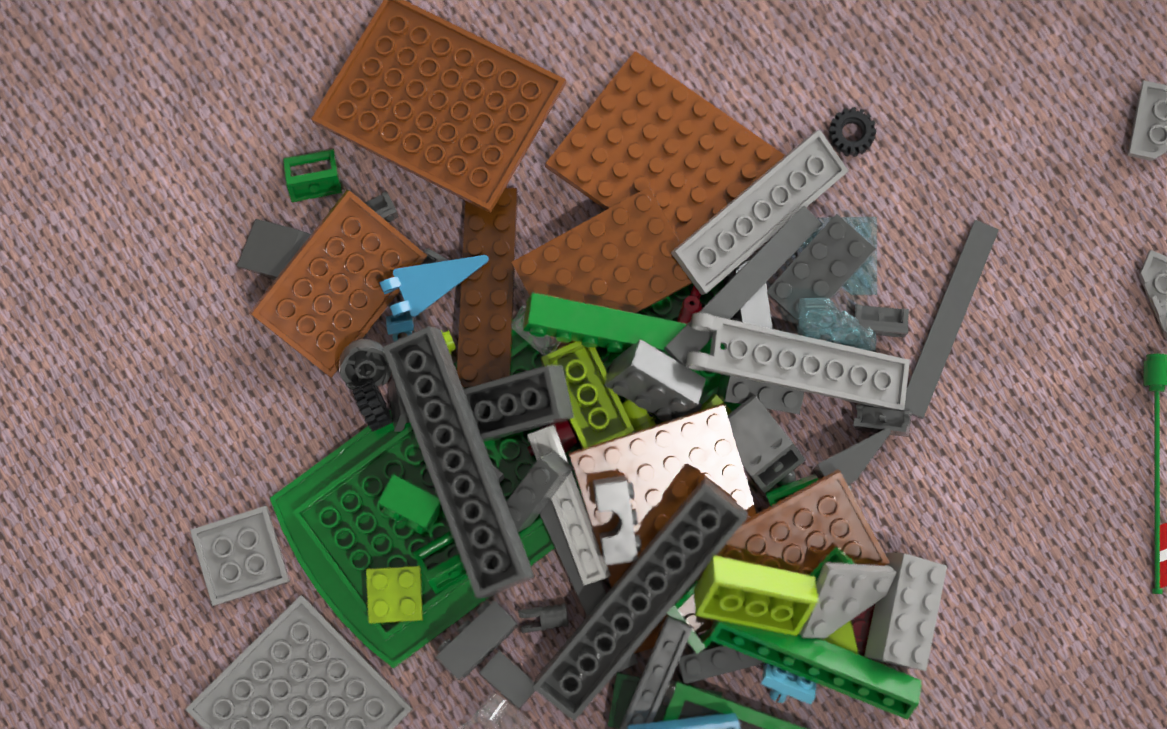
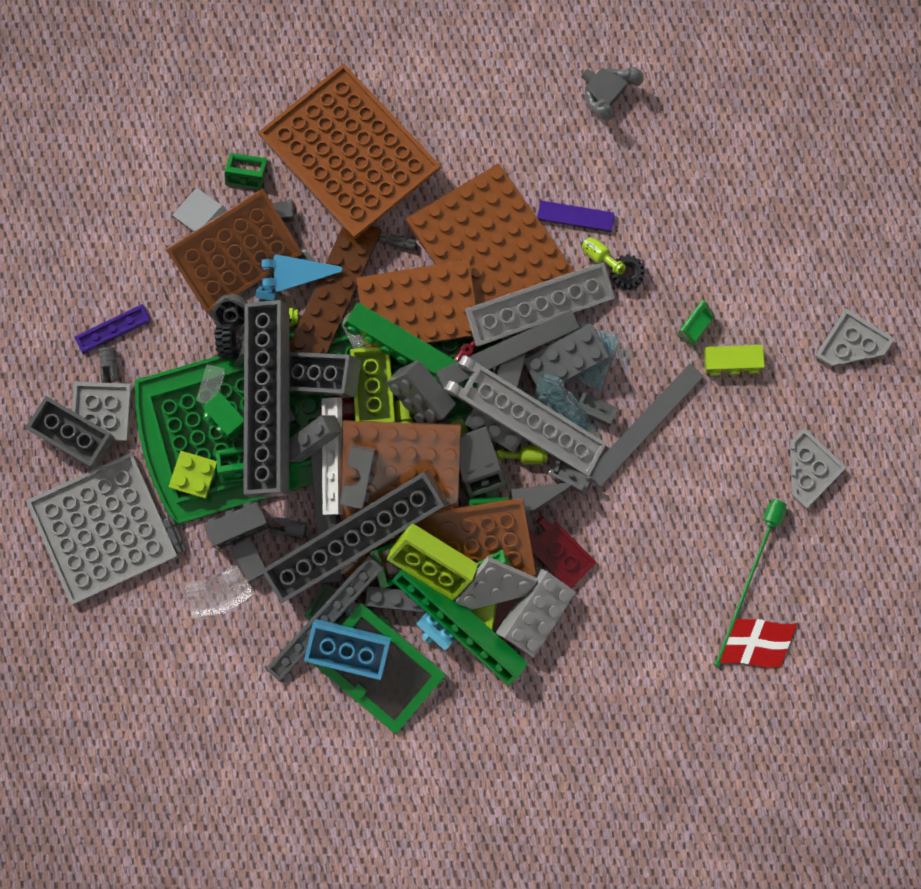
camera: 25 degrees right, 0 degrees up
(211, 598) = (70, 432): none -> dark grey brick
(214, 442) = (112, 328): none -> dark purple tile
(225, 486) = (108, 361): none -> dark grey hinge
(373, 468) = (210, 383): none -> clear tile
(398, 682) = (174, 535): none -> dark grey axle
(543, 196) = (397, 241): none -> dark grey axle
(758, 83) = (575, 216): none -> dark purple tile
(810, 119) = (600, 253): none -> lime piece
(815, 411) = (528, 455): none -> lime piece
(906, 521) = (560, 553): none -> dark red tile
(964, 166) = (696, 323): none -> green tile
(1029, 195) = (734, 359): none -> lime brick

